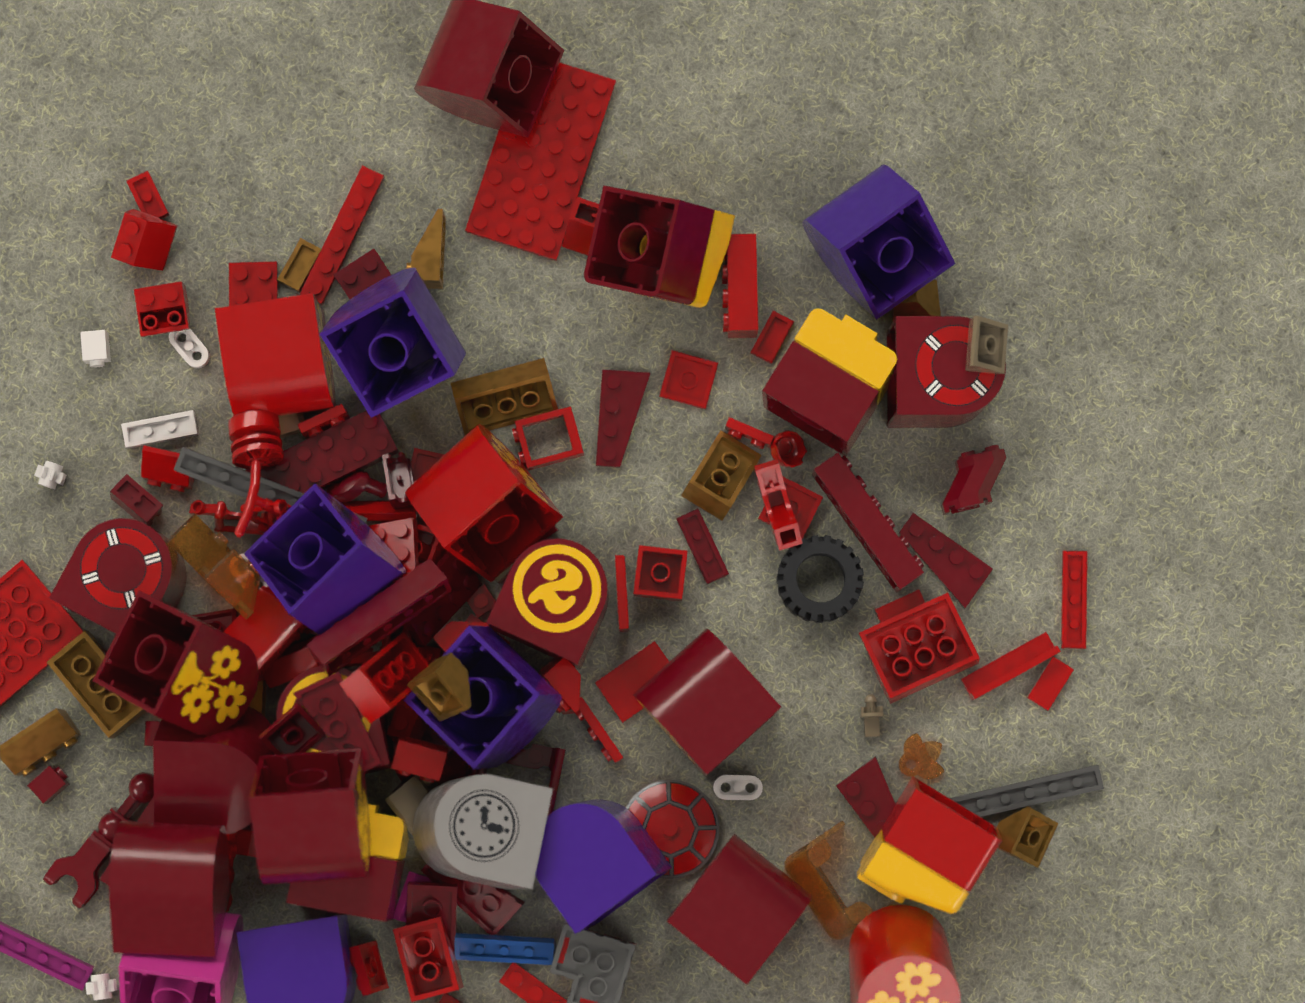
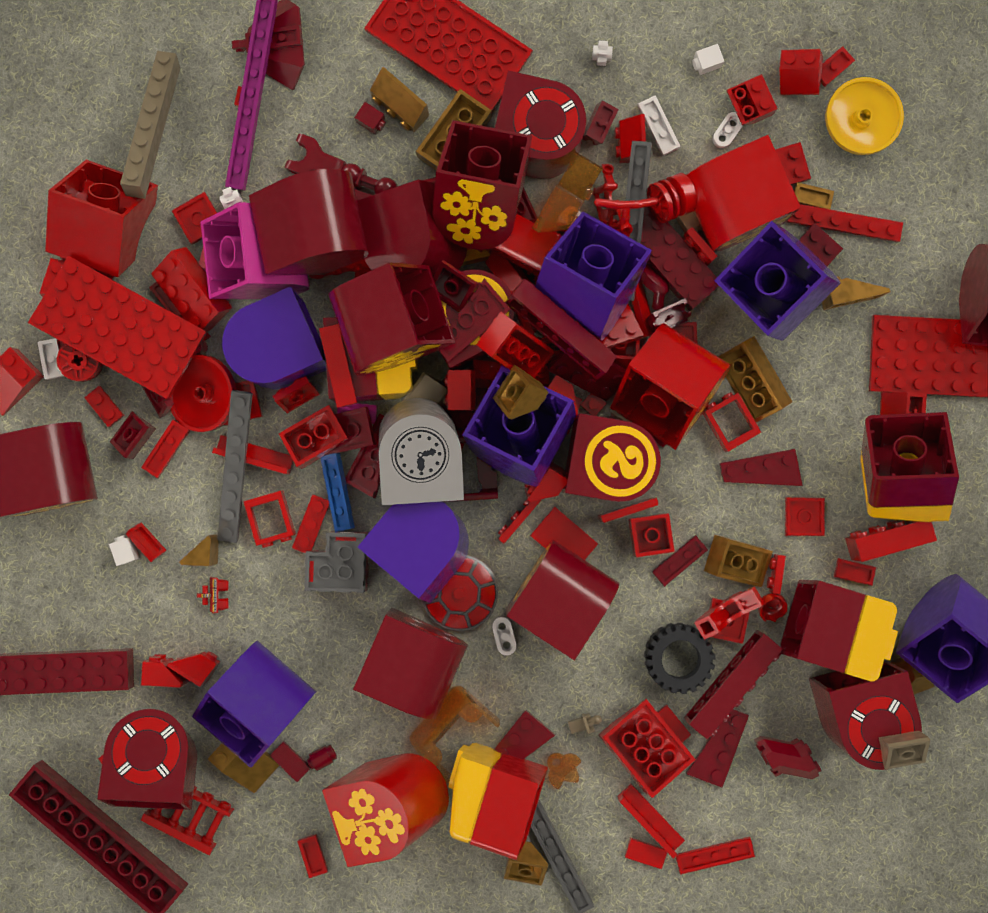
camera: 75 degrees right, 5 degrees up
(219, 178) = (864, 116): none -> yellow dish
(349, 899) = (338, 366): none -> red tile

